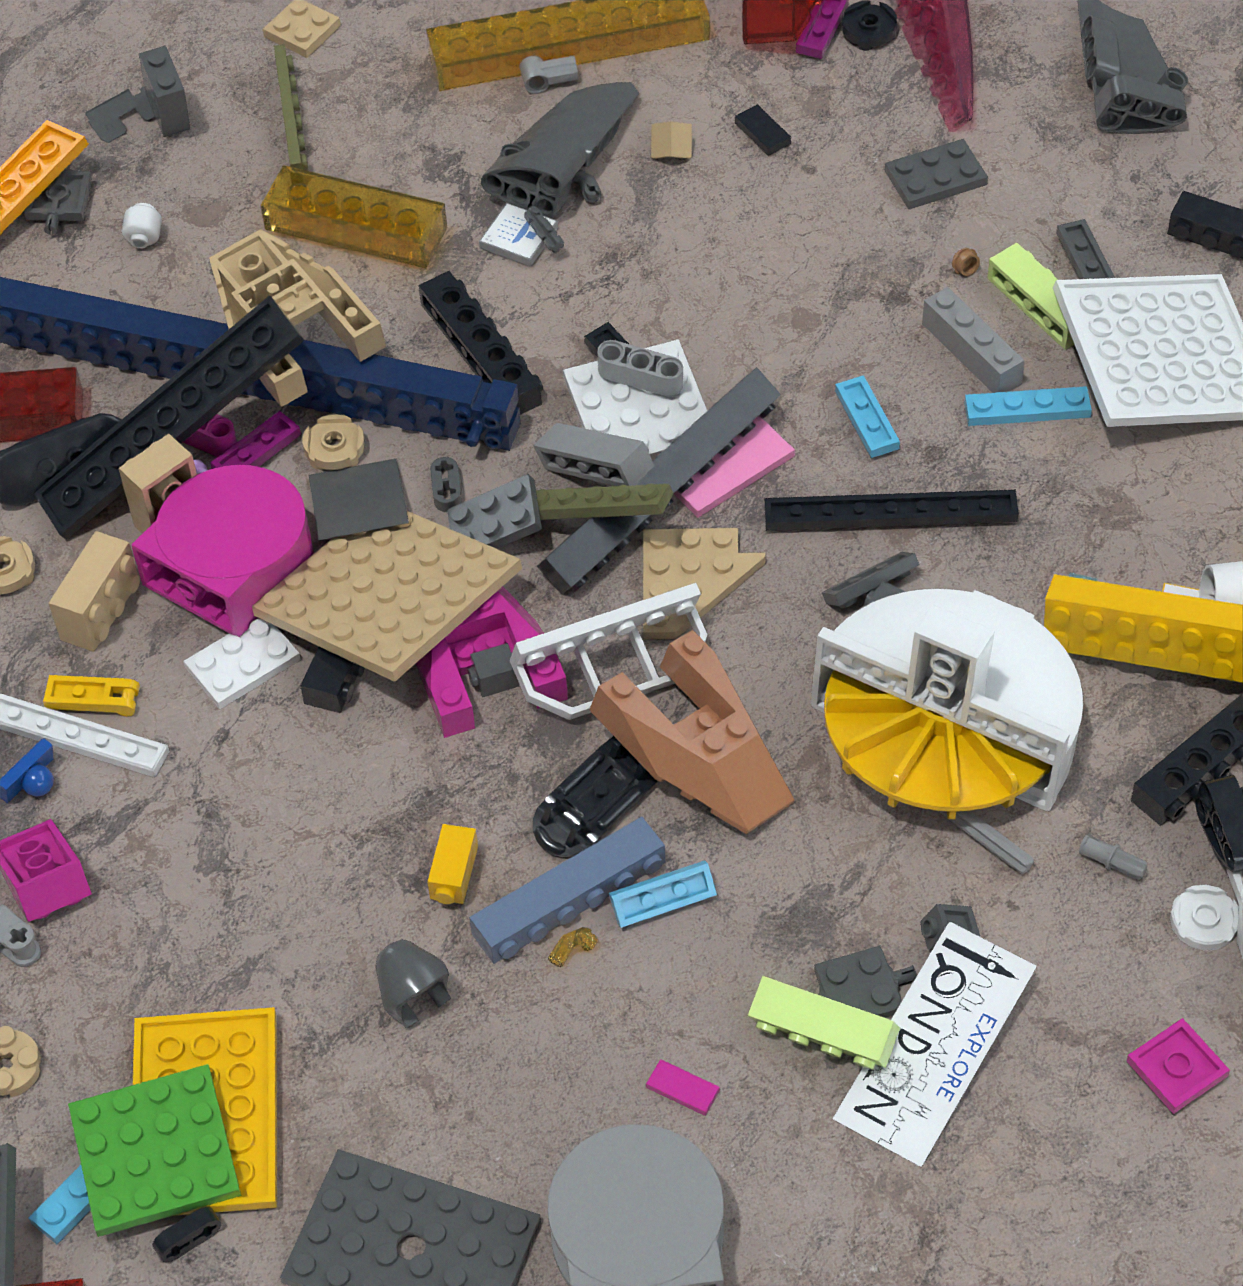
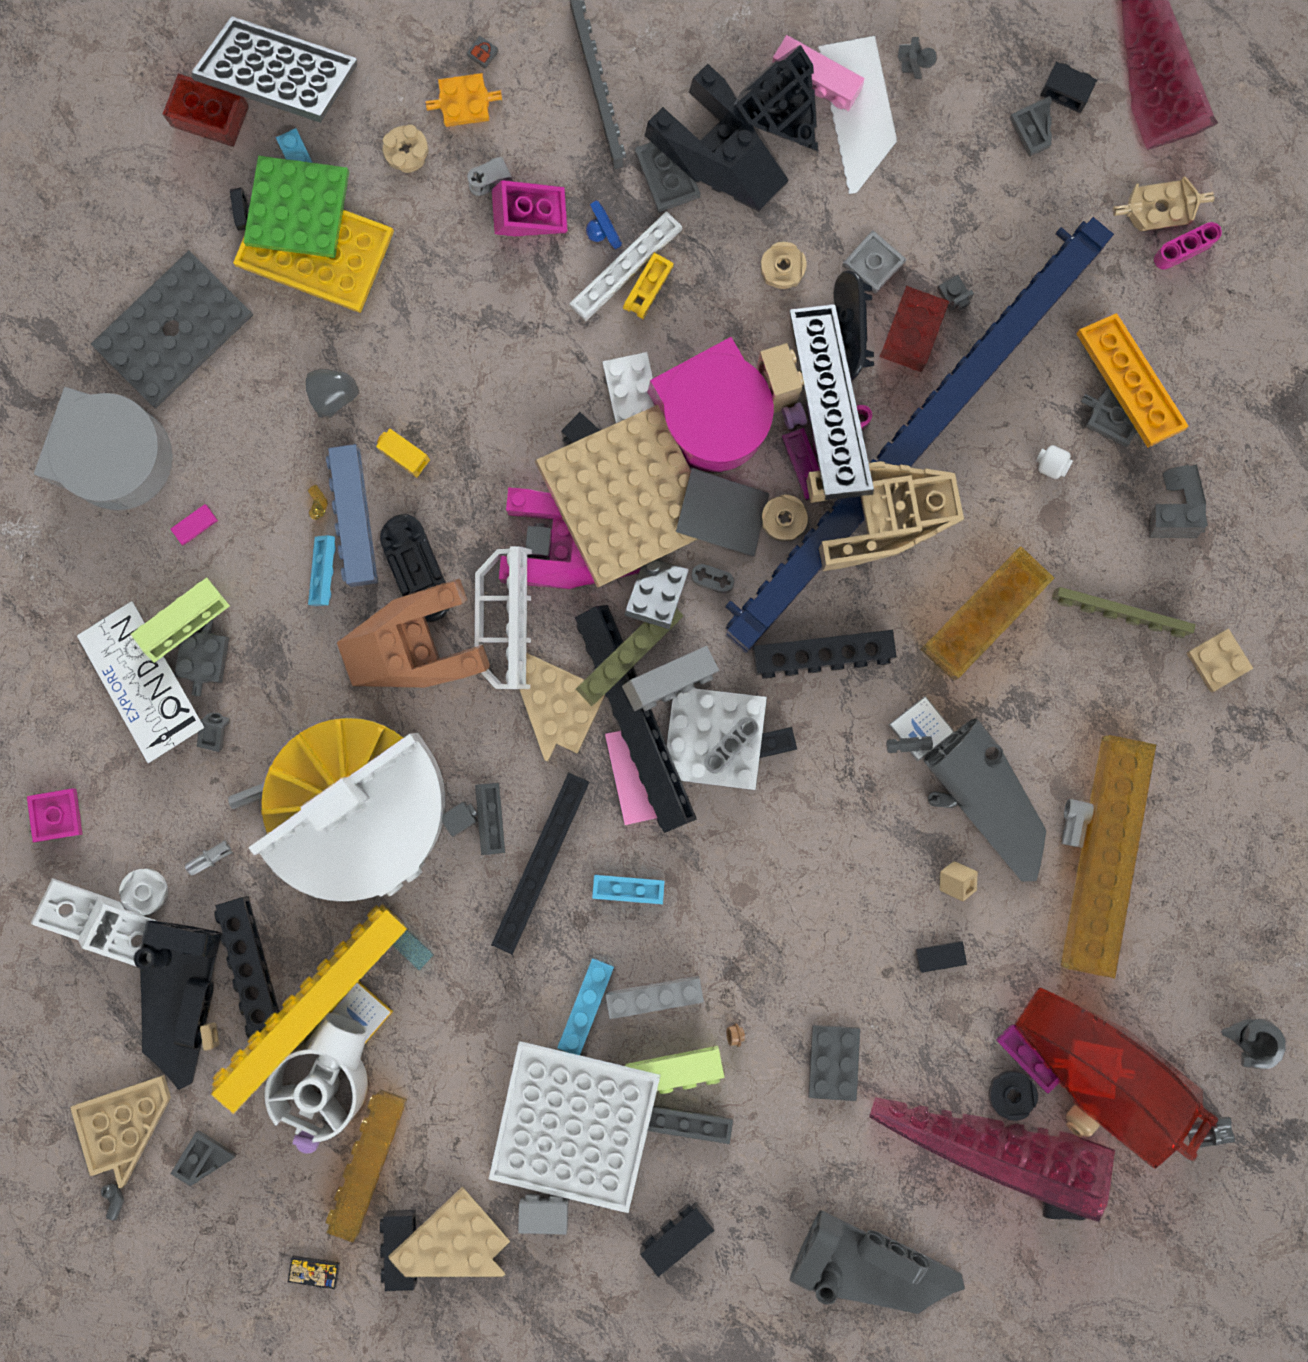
camera: 115 degrees right, 30 degrees up
(94, 591) = (720, 309): tan brick -> none

